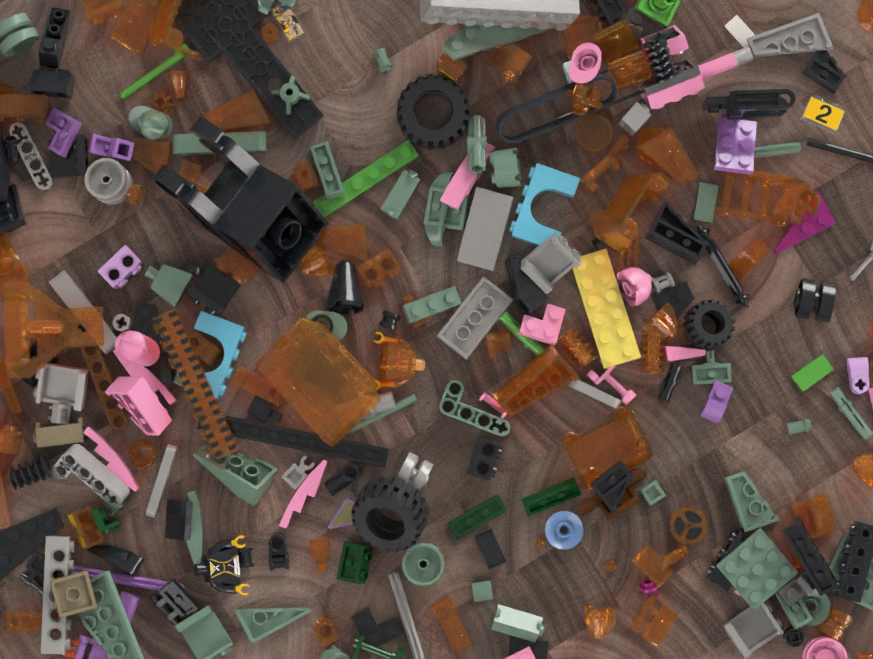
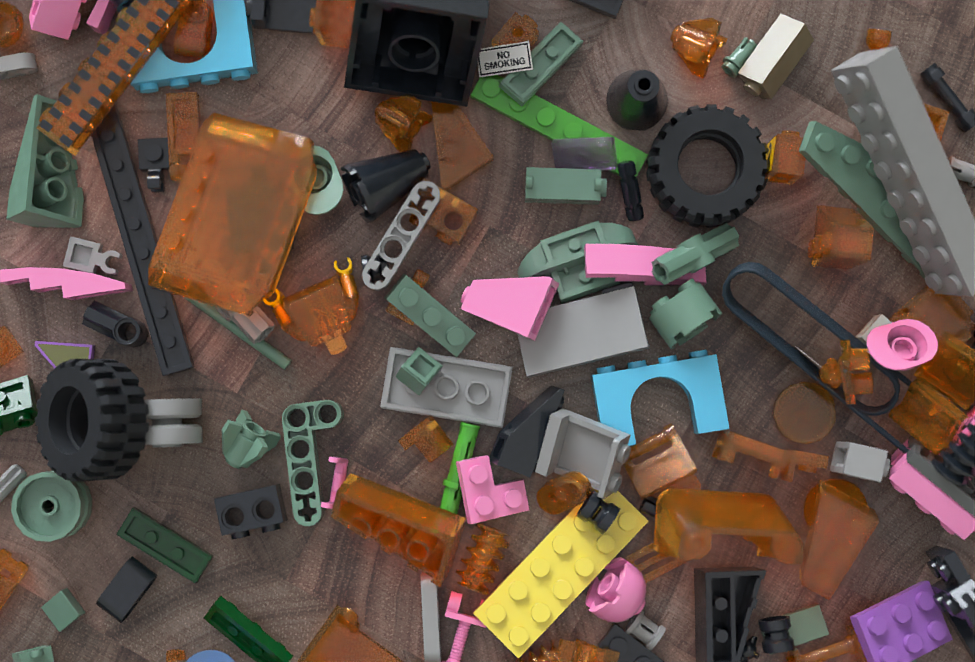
camera: 65 degrees right, 0 degrees up
(316, 187) = (505, 59): none -> white sticker
(363, 79) = (697, 43): none -> clear orange brick
(377, 135) = (637, 100): none -> black cone
(378, 297) = (397, 233): none -> light grey beam
(390, 173) = (585, 153): none -> plate
(393, 42) = (775, 57): none -> brick
(423, 160) = (630, 190): none -> black axle
(446, 441) = (246, 441): none -> sand green brick
(449, 257) = (511, 302): none -> bright pink slope
(458, 327) = (418, 371): none -> sand green slope
(567, 281) = (564, 492): none -> clear orange plate
(582, 225) = (662, 468): none -> clear orange plate
(590, 270) = (604, 516): none -> black wheel
(702, 213) = (776, 634): none -> black wheel

